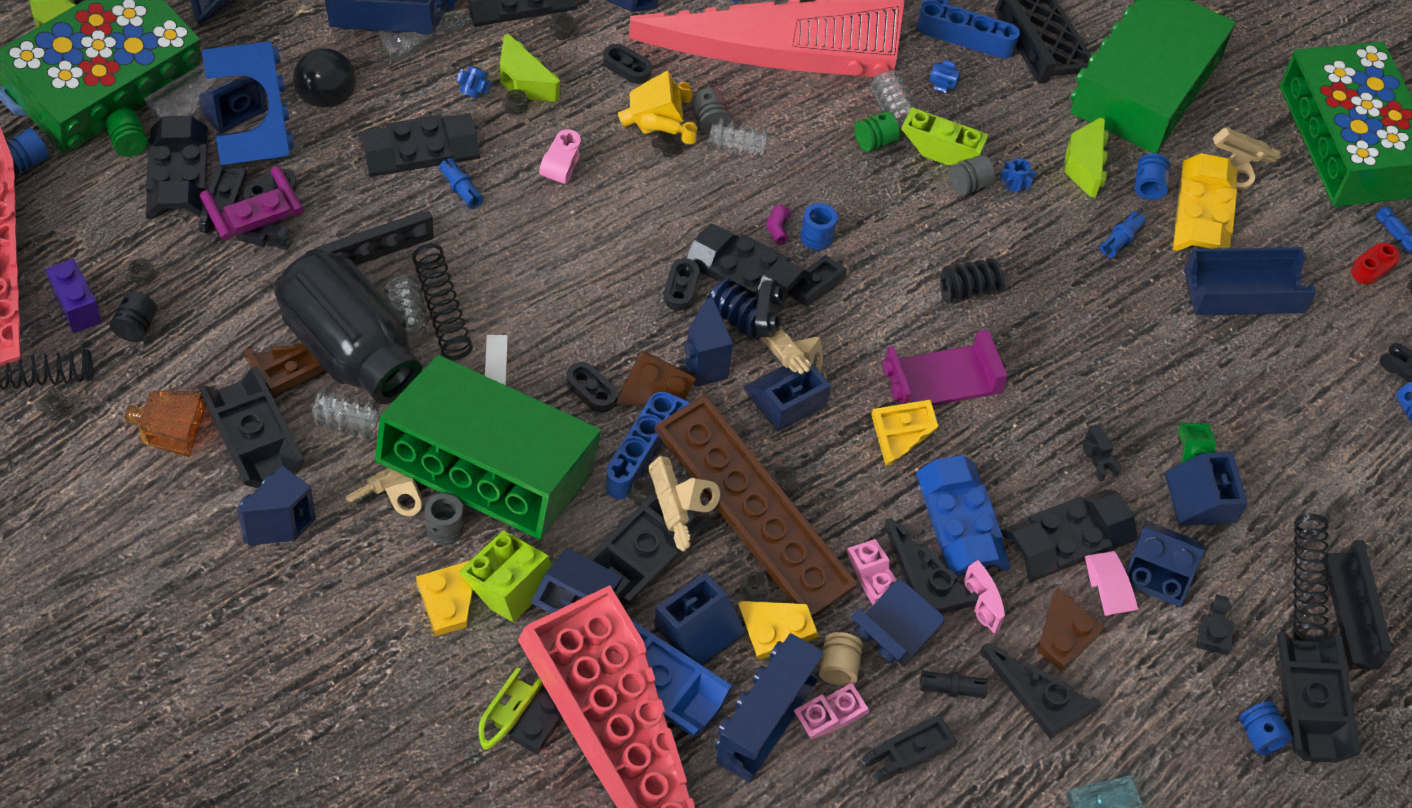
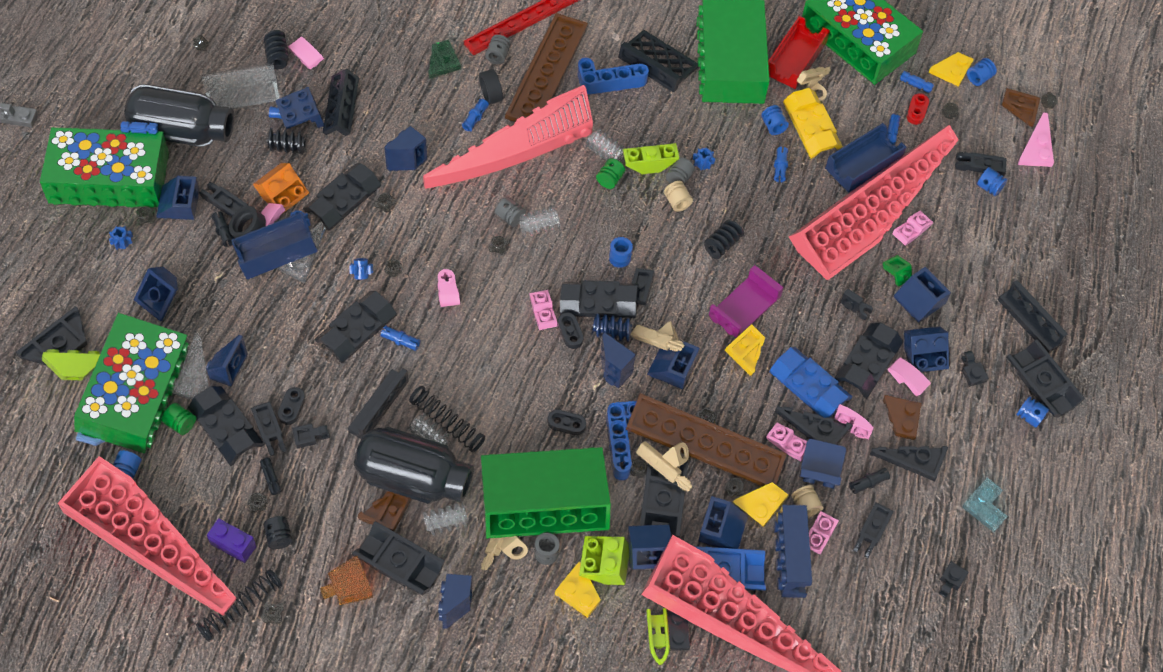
camera: 30 degrees left, 5 degrees up
(180, 253) = (270, 476): none -> black axle
(256, 210) = (298, 426): magenta plate -> none
(270, 136) = (270, 372): blue arch -> none
(324, 77) = (268, 315): black piece -> none
(496, 358) = (500, 436): white sticker -> none
(526, 73) = (385, 246): lime slope -> none
(627, 63) = (439, 206): black plate -> none
(652, 376) = (598, 398): reddish brown wing -> none
(659, 107) = (482, 227): yellow torso -> none
(666, 243) = (543, 309): none -> bright pink slope
(767, 313) = (638, 327): black plate -> none
(775, 222) = (593, 262): magenta arm -> none
(944, 76) = (623, 117): blue gear -> none
(948, 200) = (678, 196): none -> tan piece
(1086, 157) = (732, 127): lime slope -> none
(1209, 349) = (869, 211): none -> coral wedge
(1246, 106) = (796, 53): none -> red brick
(1261, 404) = (912, 228): none -> bright pink slope
(1312, 531) = (986, 287): black piece -> none
(1320, 268) = (893, 128): none -> blue axle

